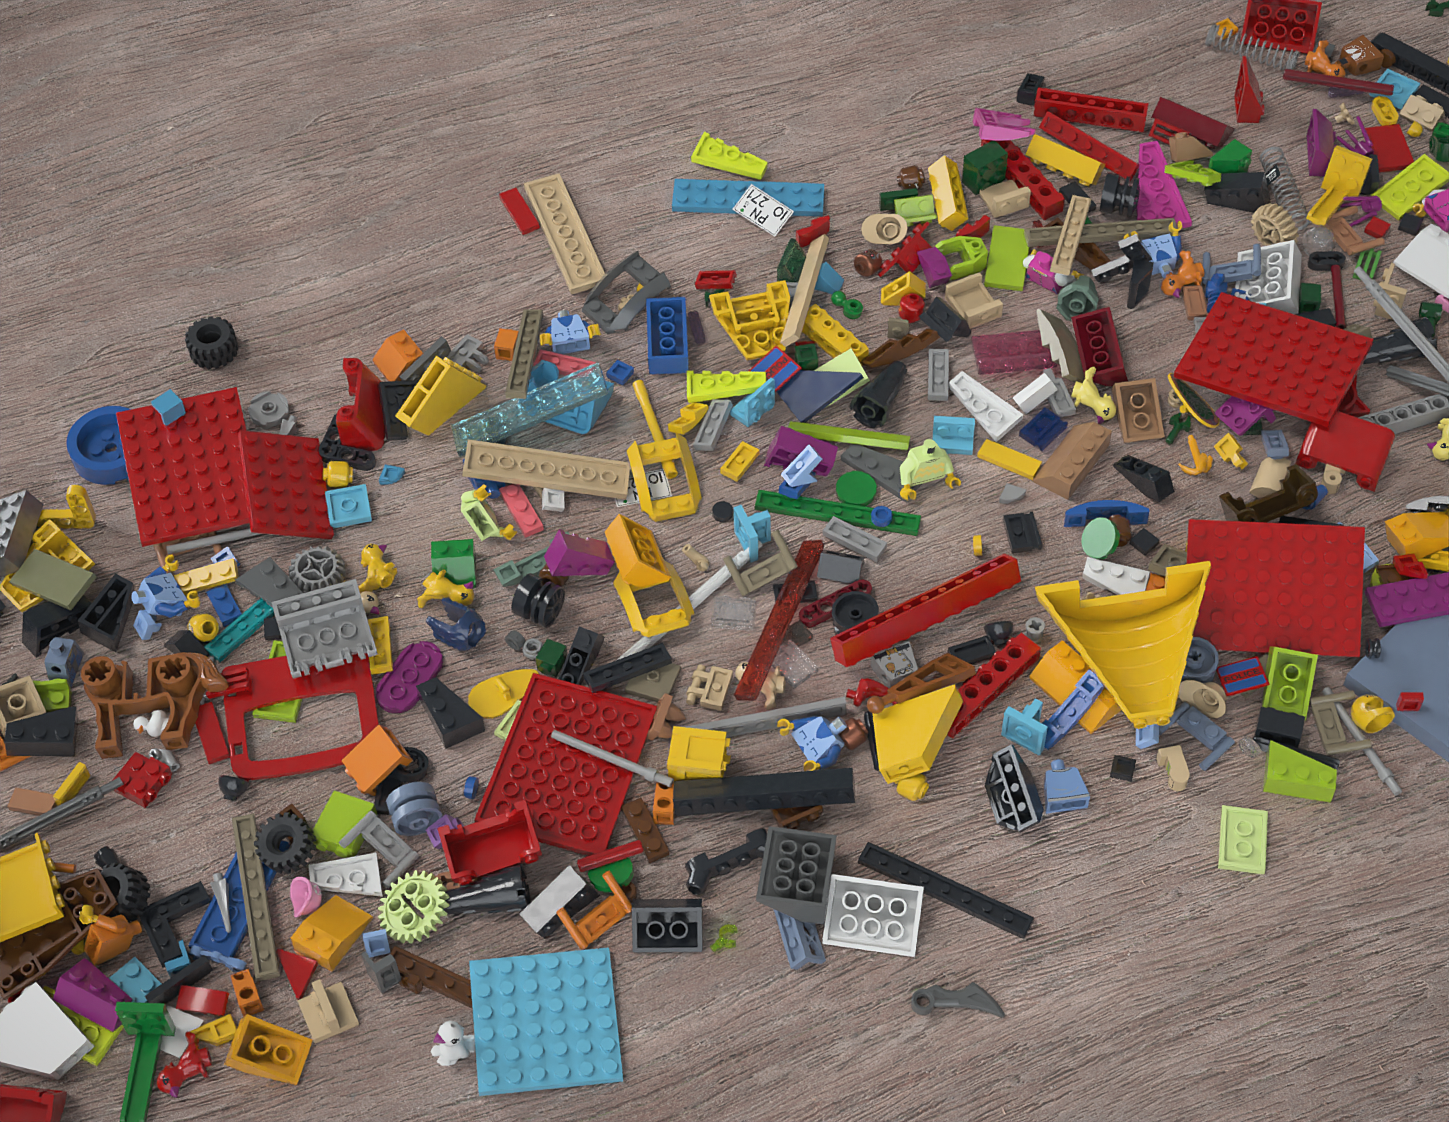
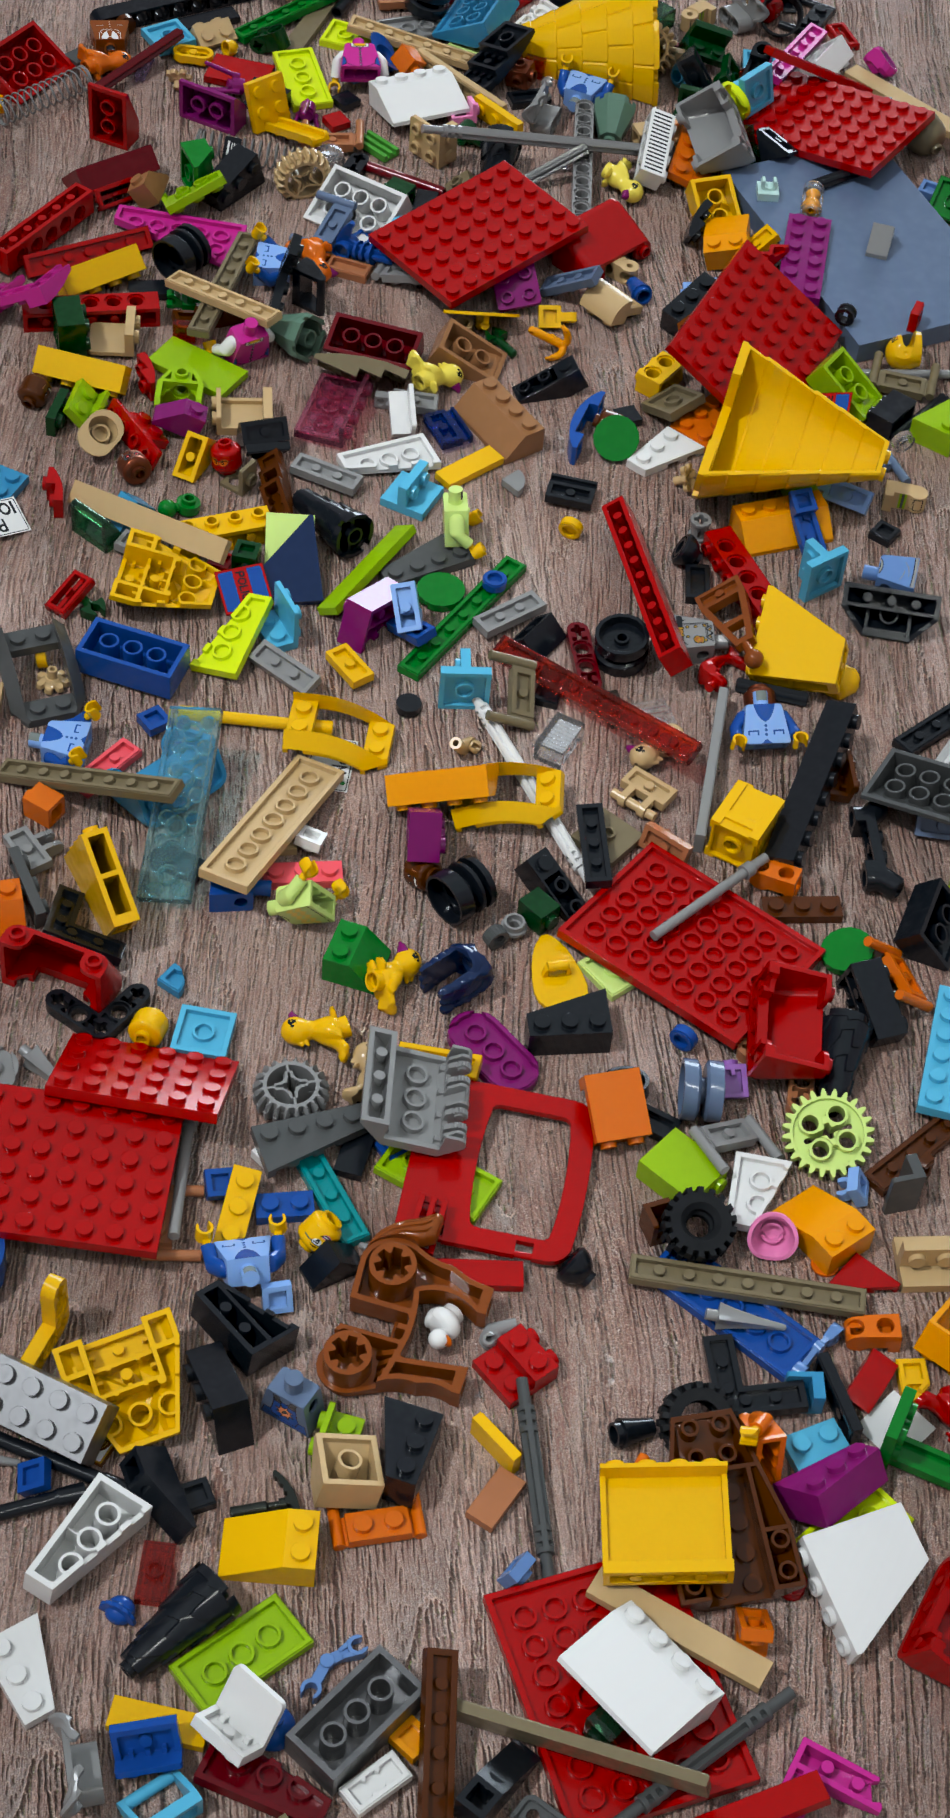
camera: 75 degrees left, 5 degrees down
(53, 579) = (168, 1365): olive tile -> none
(512, 574) = (390, 879): sand green slope -> none
(610, 856) = (832, 941): red axle -> none
(689, 418) = (261, 686): yellow slope -> none
(1295, 493) = (656, 302): dark brown windscreen -> none

